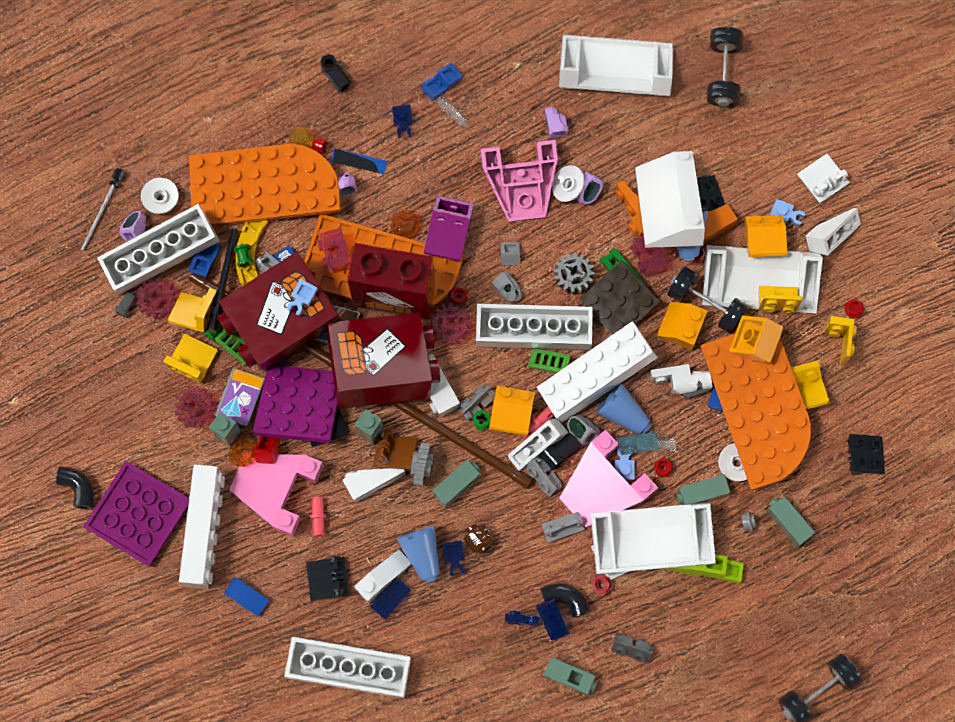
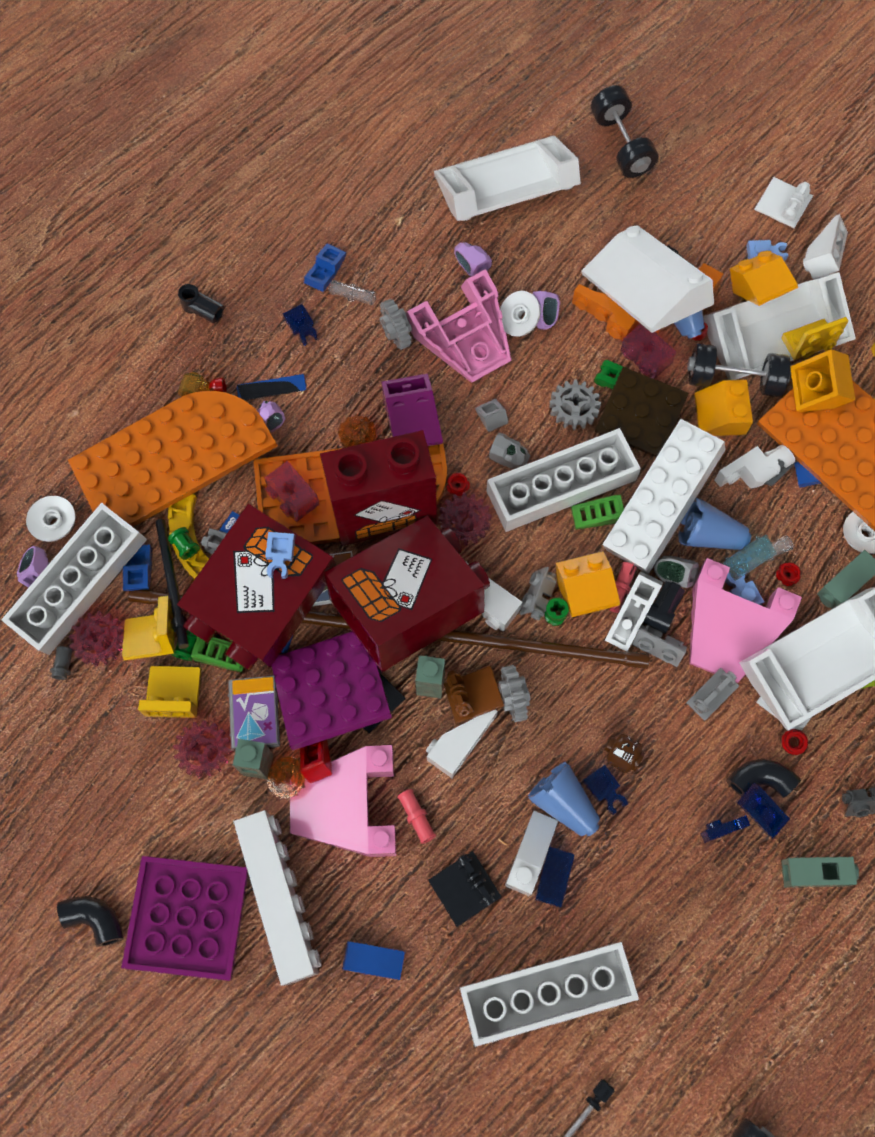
camera: 25 degrees left, 5 degrees down
(456, 483) = (564, 698): sand green brick -> none
(469, 153) = (395, 324): none -> light grey gear

